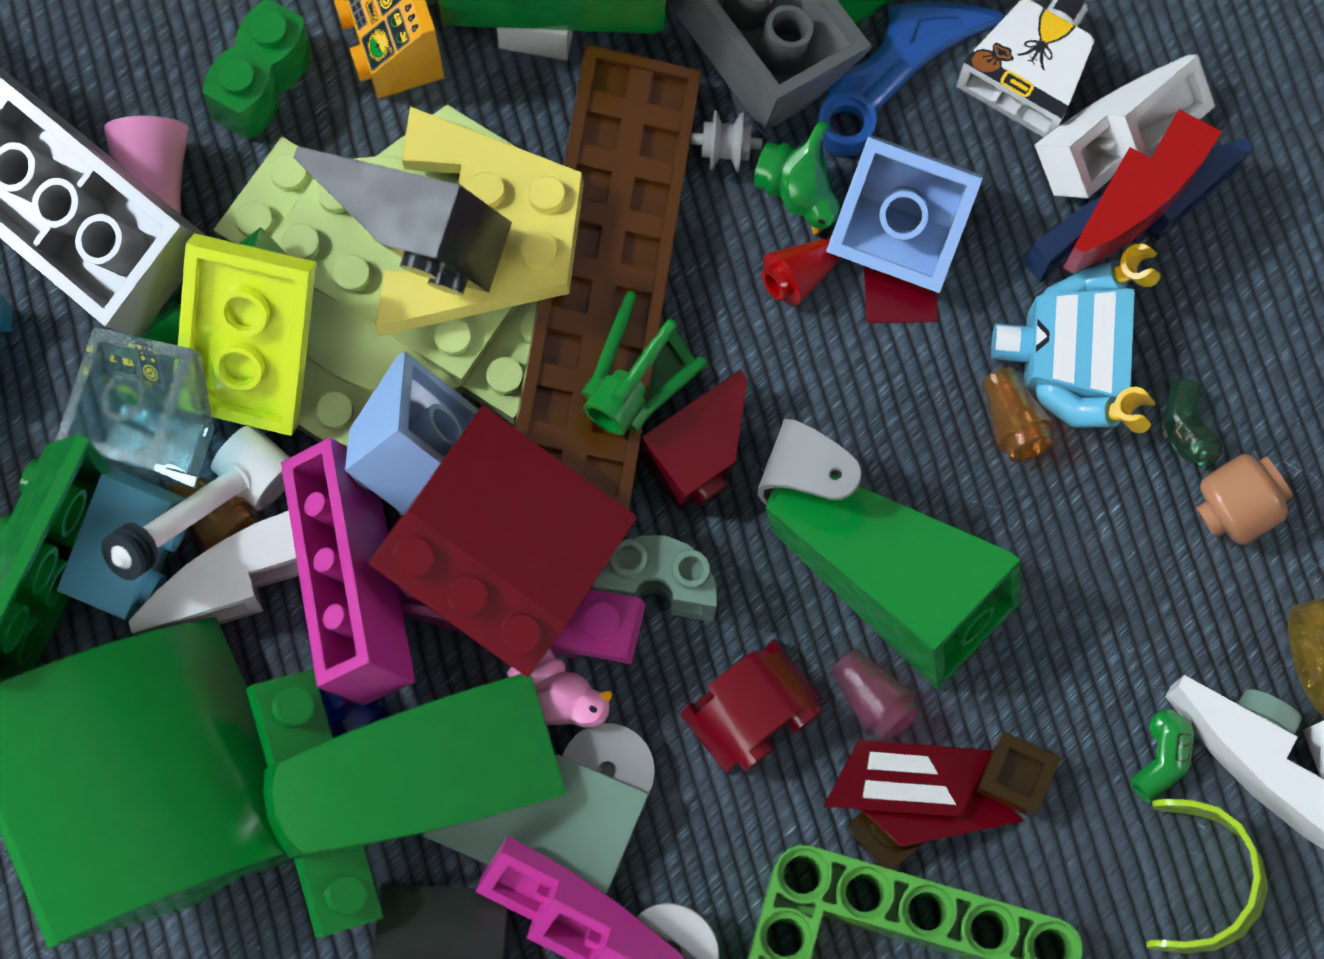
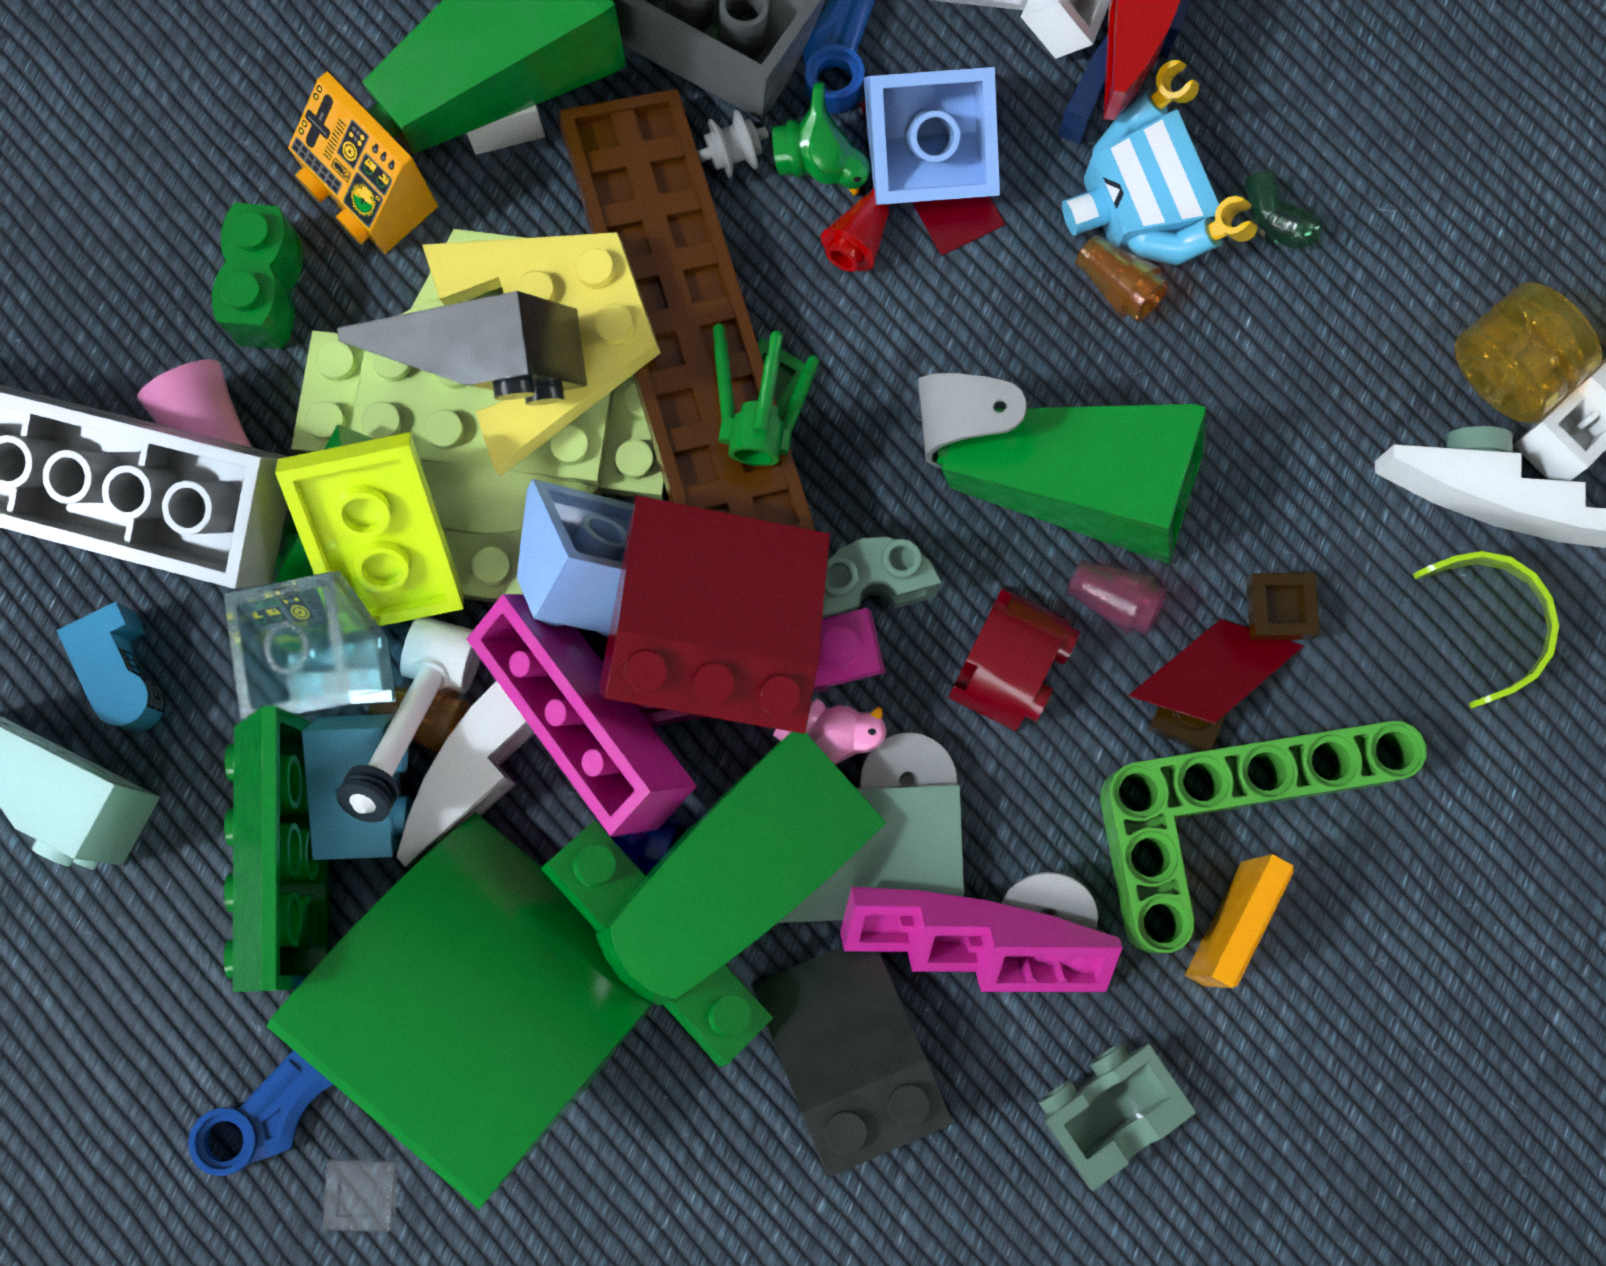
camera: 20 degrees left, 5 degrees up
(697, 444) = (847, 439): dark red slope -> none
(908, 778) = (1187, 657): dark red sticker -> none
(1173, 755) = (1411, 524): green arm -> none
(1244, 499) = (1364, 258): nougat head -> none

